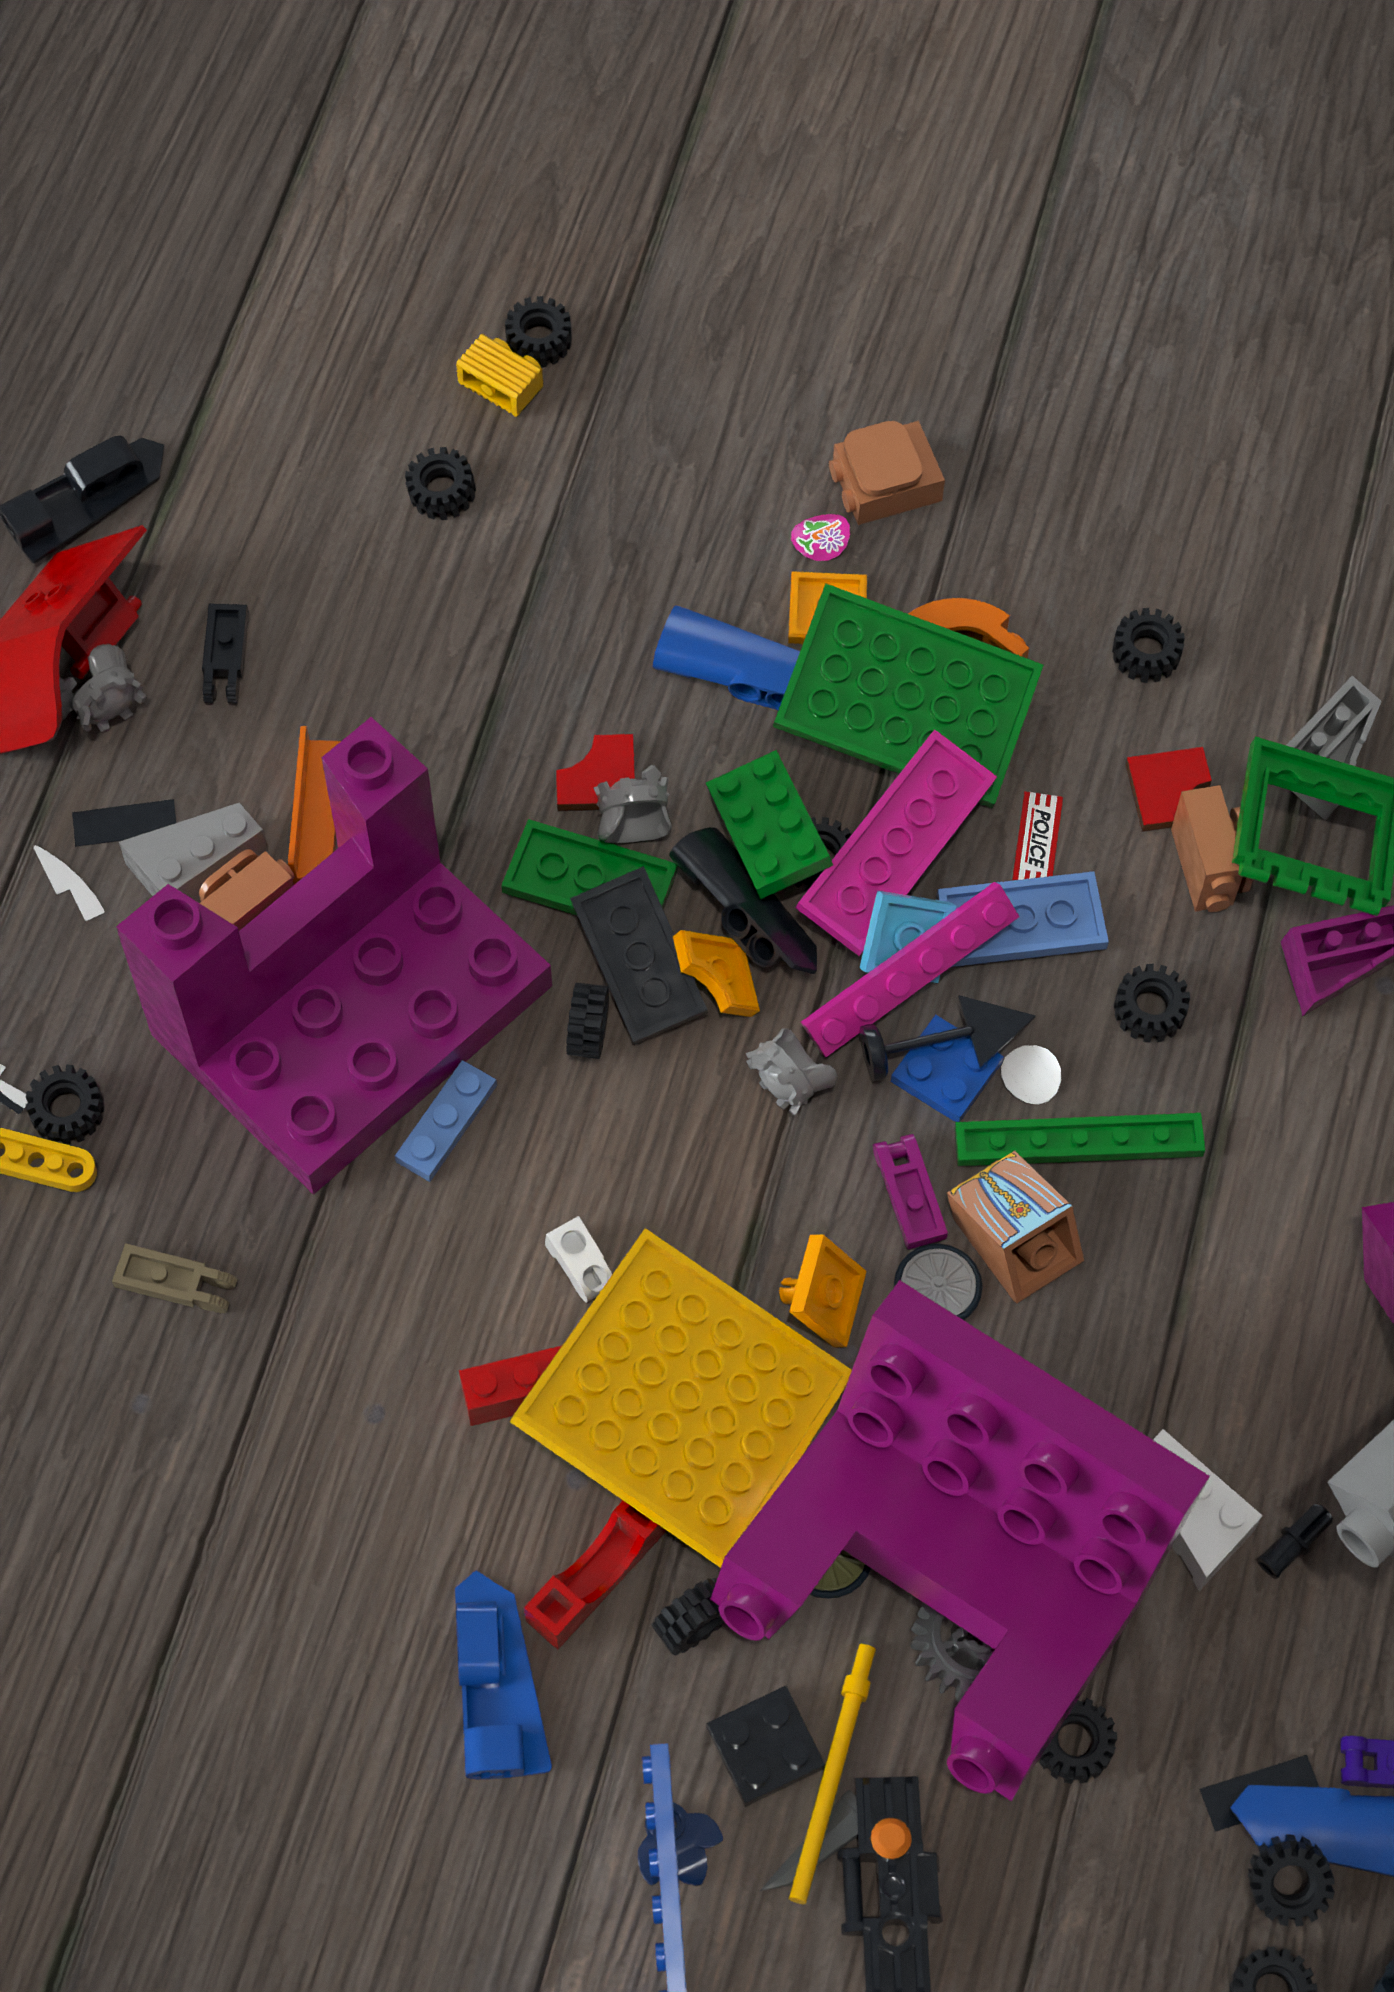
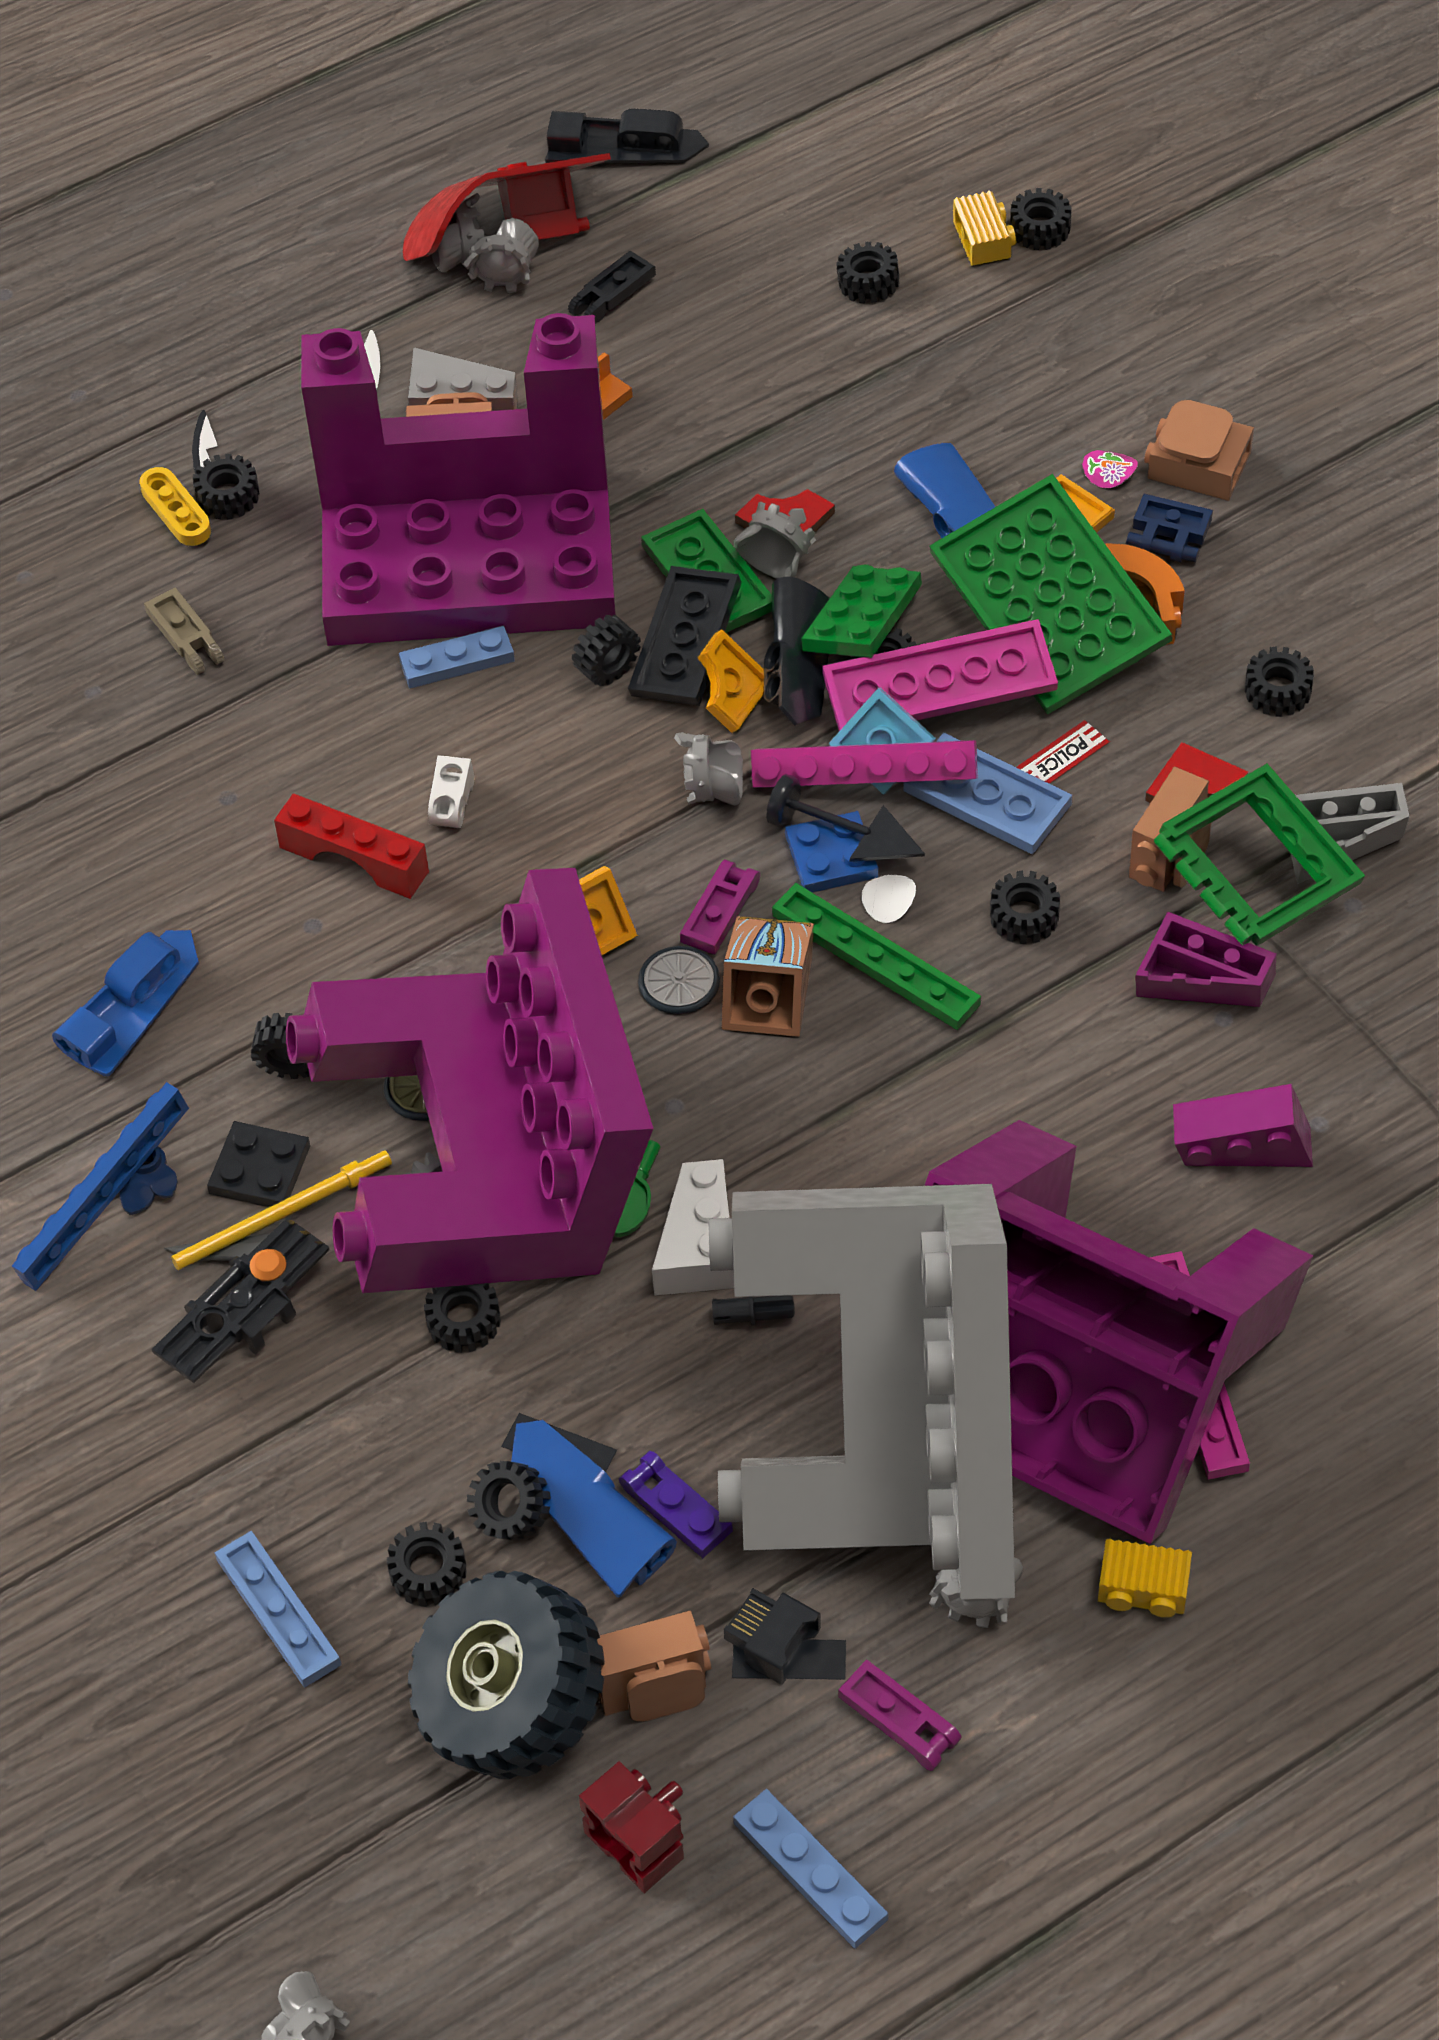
camera: 45 degrees right, 10 degrees down
(121, 822) = (431, 342): black sticker -> none
(581, 1588) = (221, 982): red arch -> none
(682, 1397) = (404, 884): yellow plate -> none
(924, 552) = (1173, 520): none -> dark blue plate

